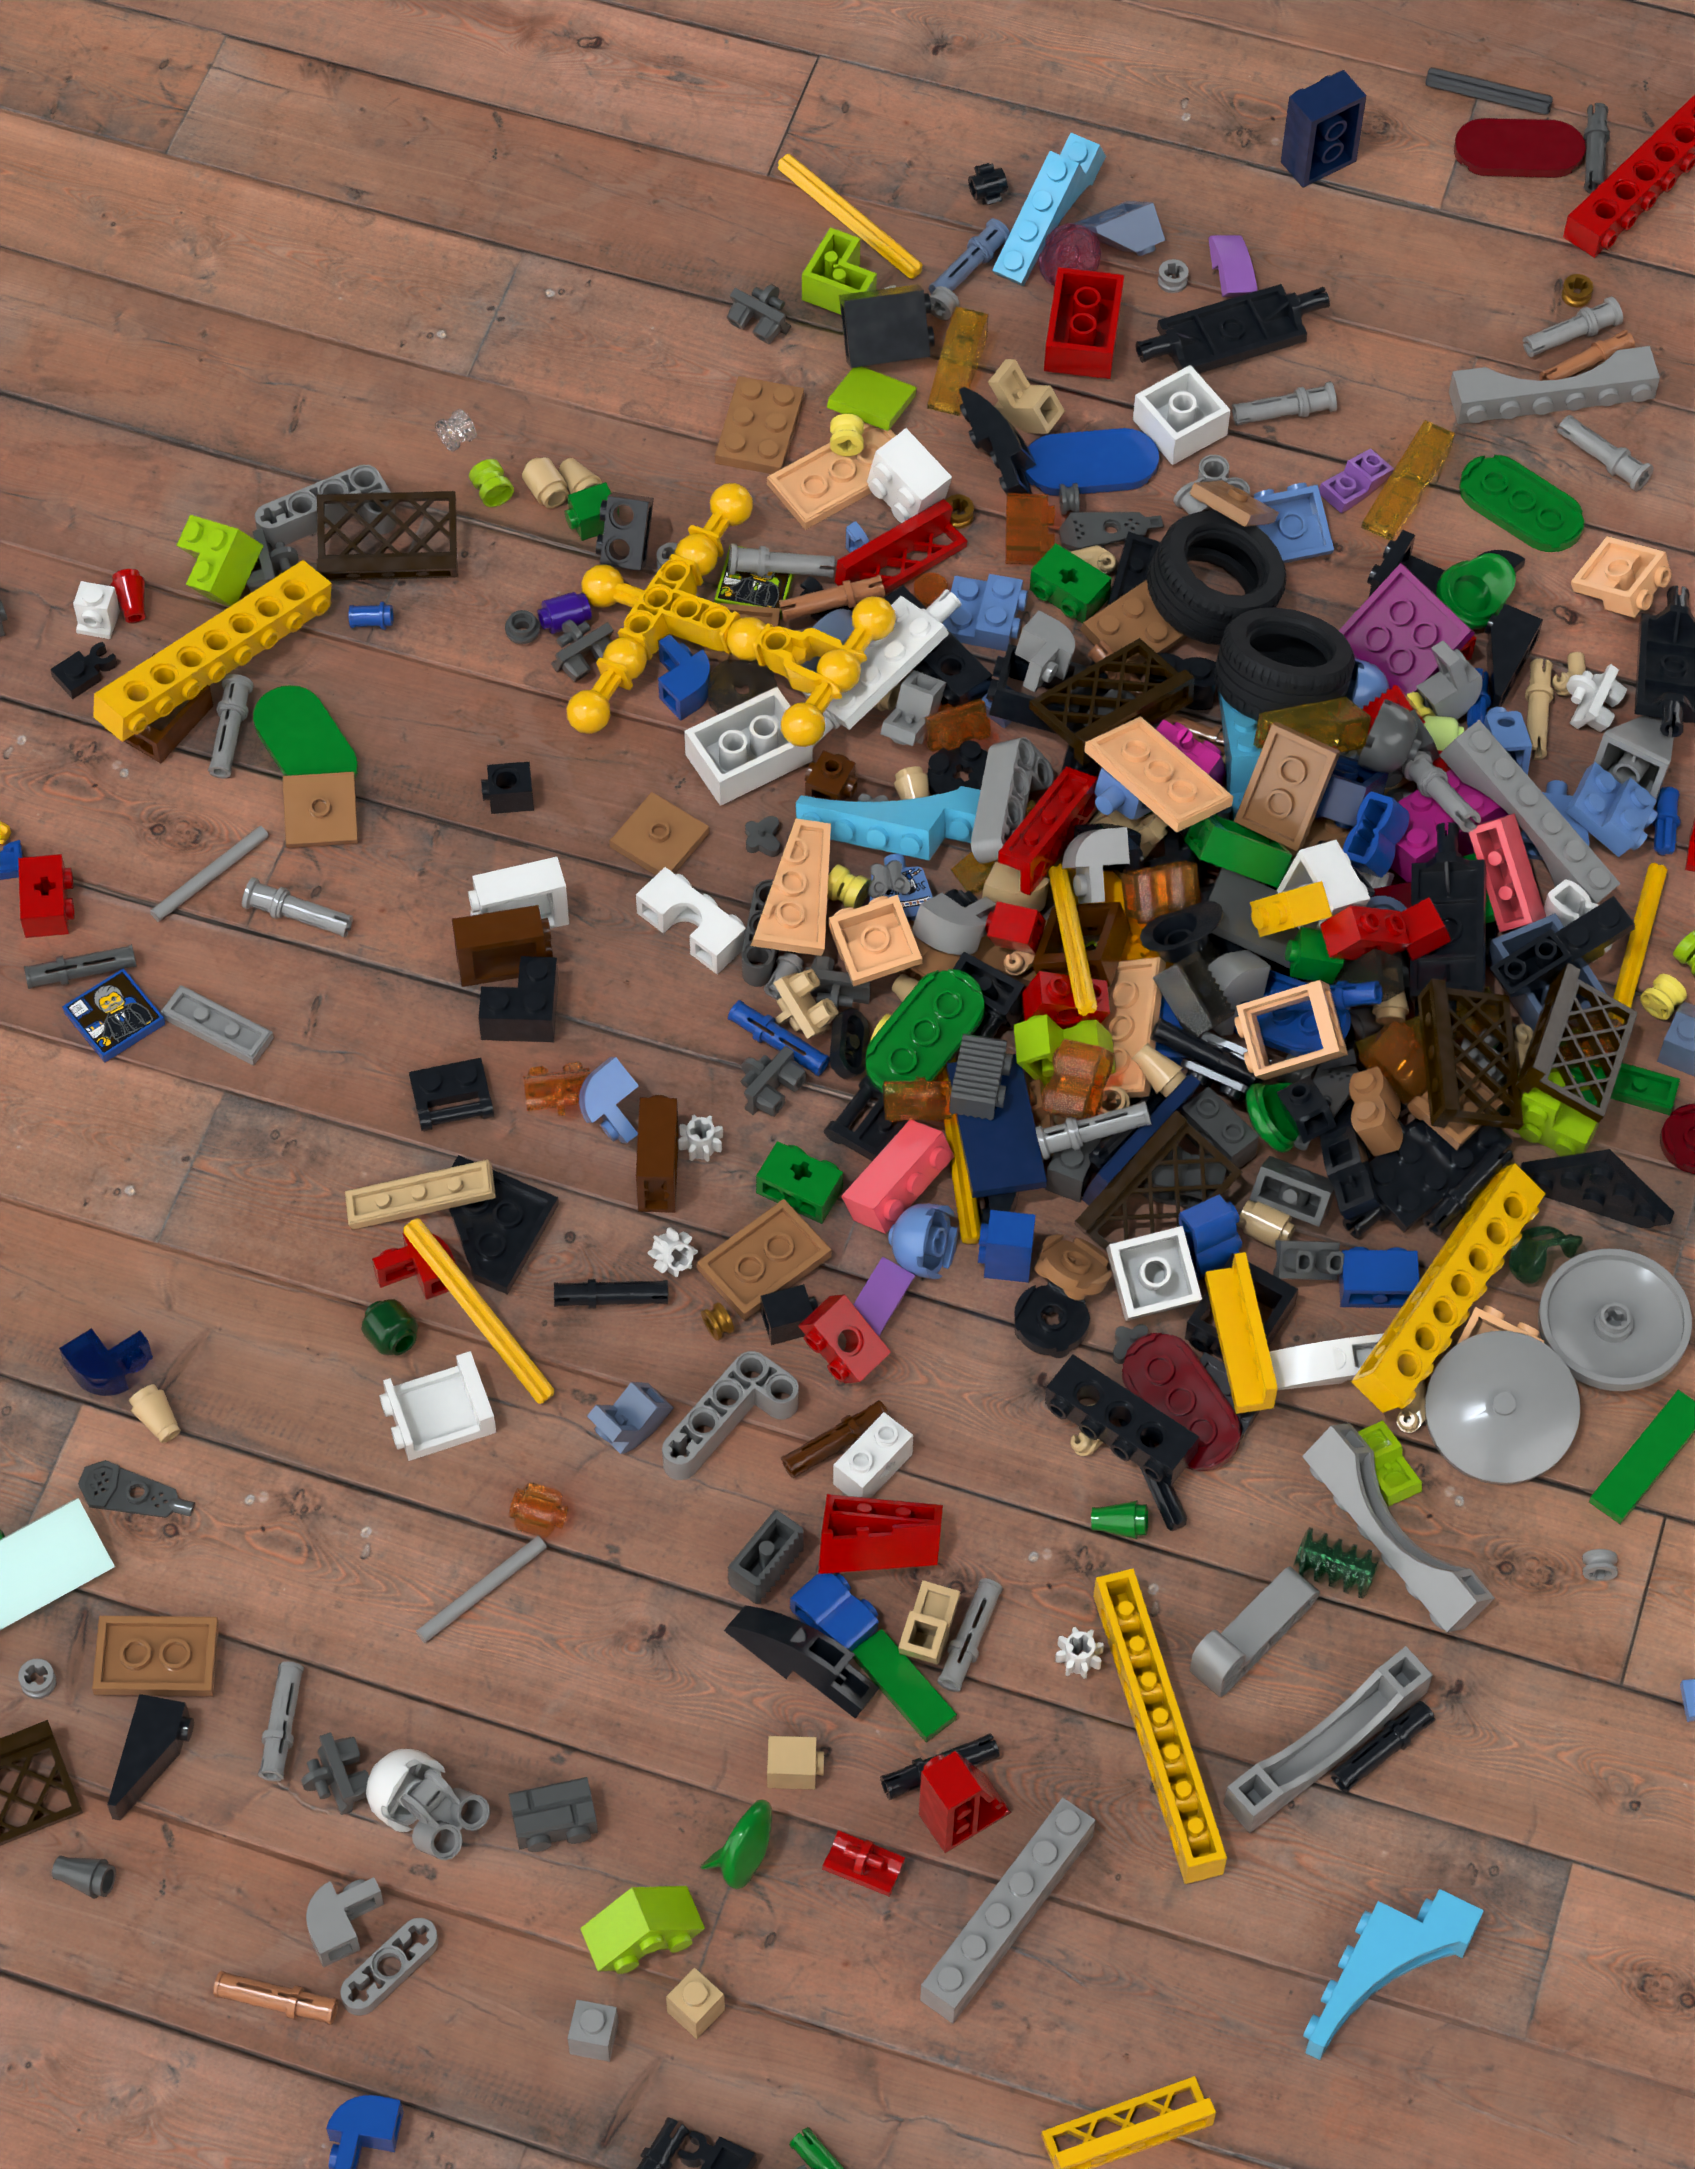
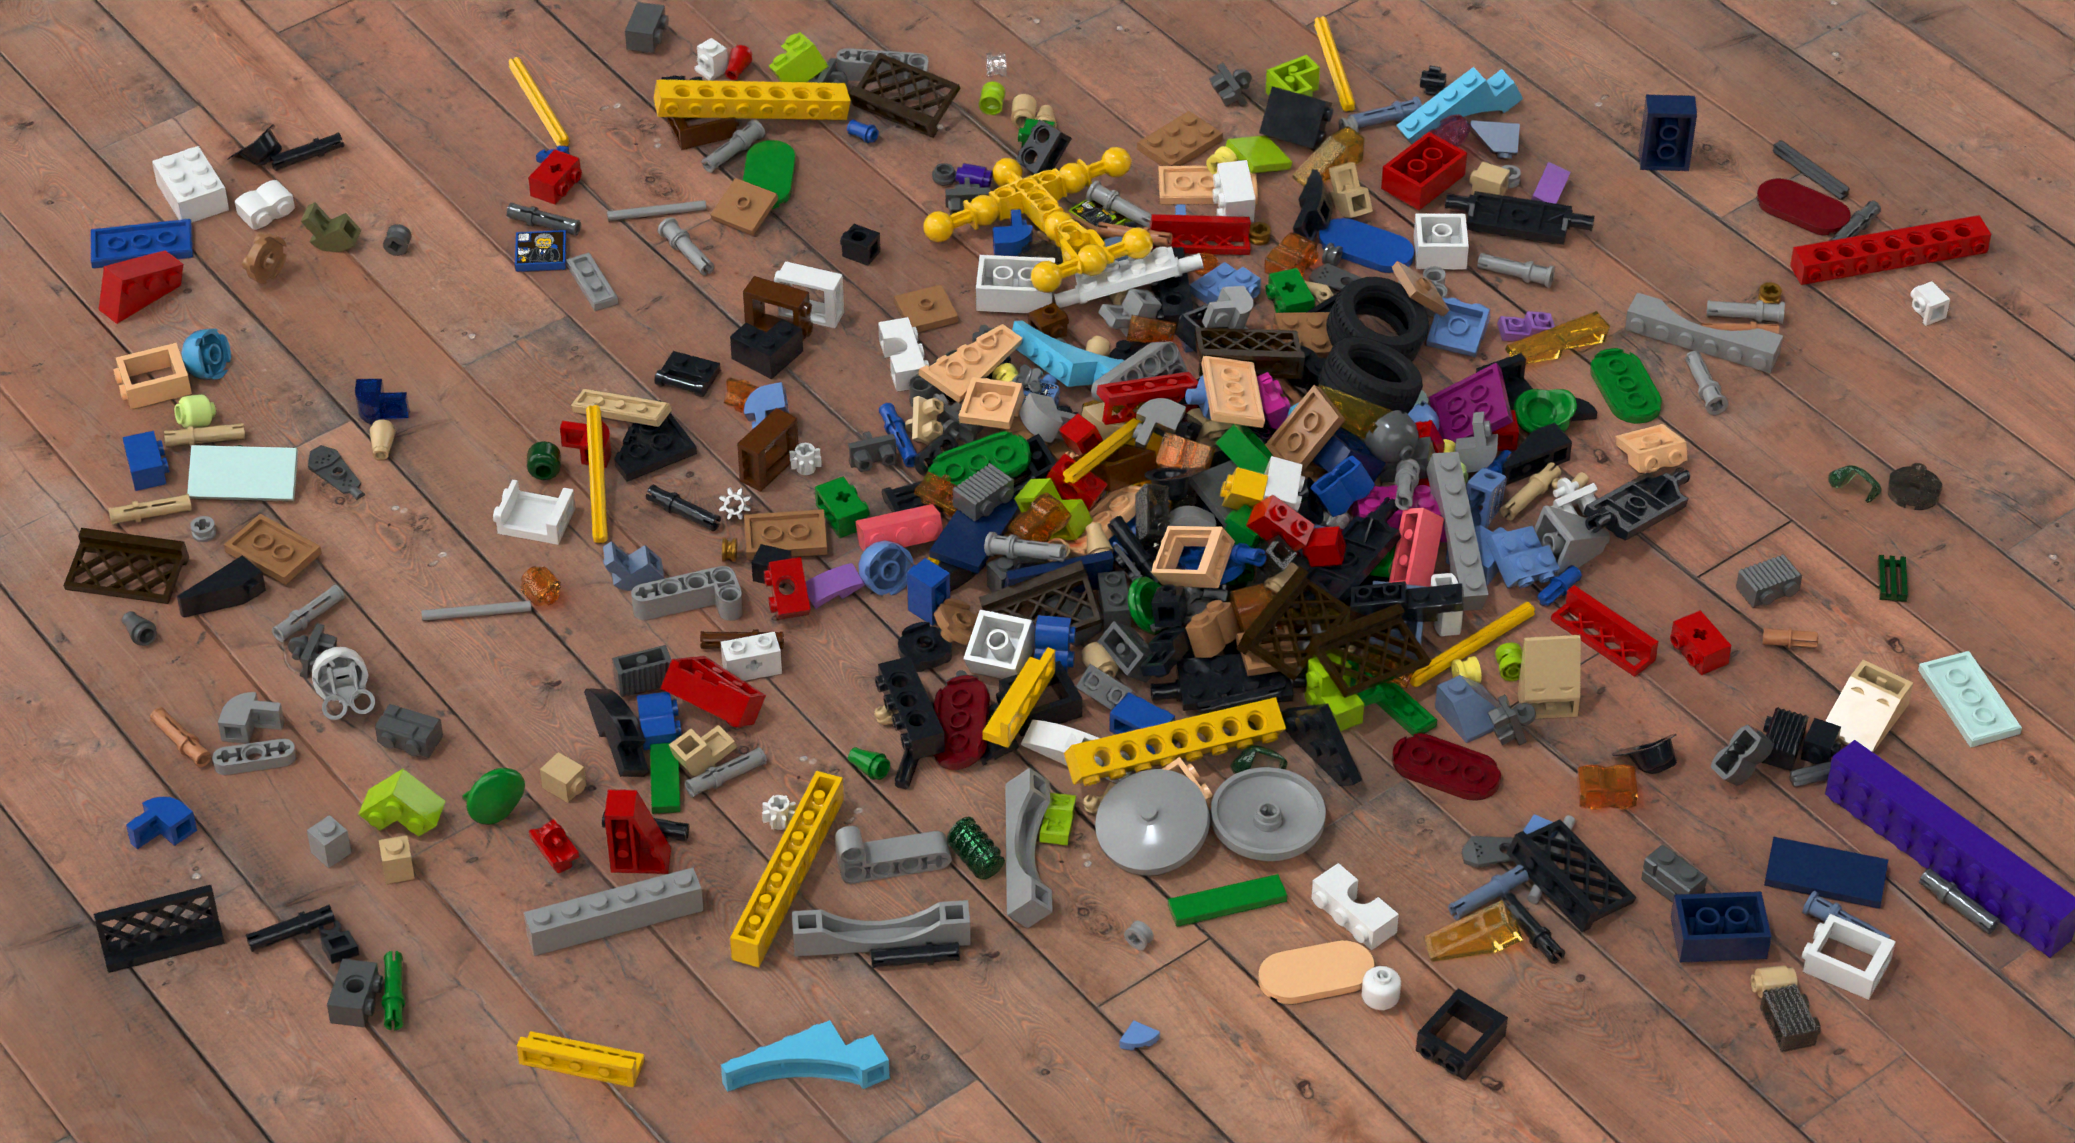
camera: 35 degrees right, 15 degrees down
(1162, 296) = (1490, 179): none -> tan brick

